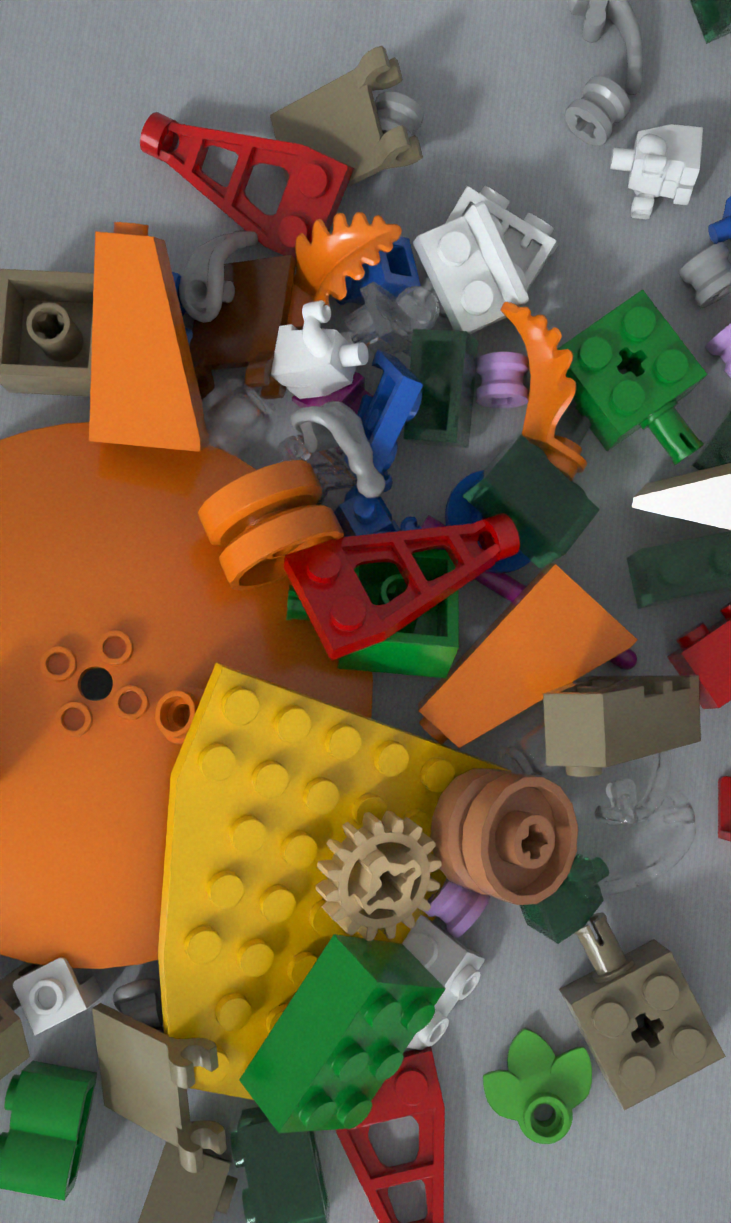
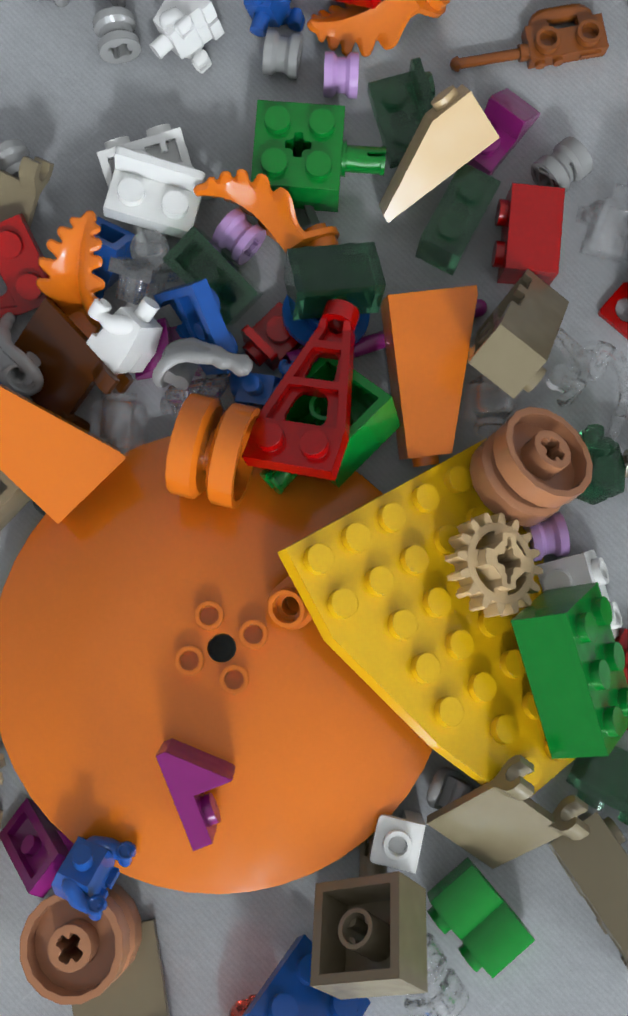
camera: 50 degrees left, 0 degrees up
(427, 488) = (268, 339): none -> red bracket

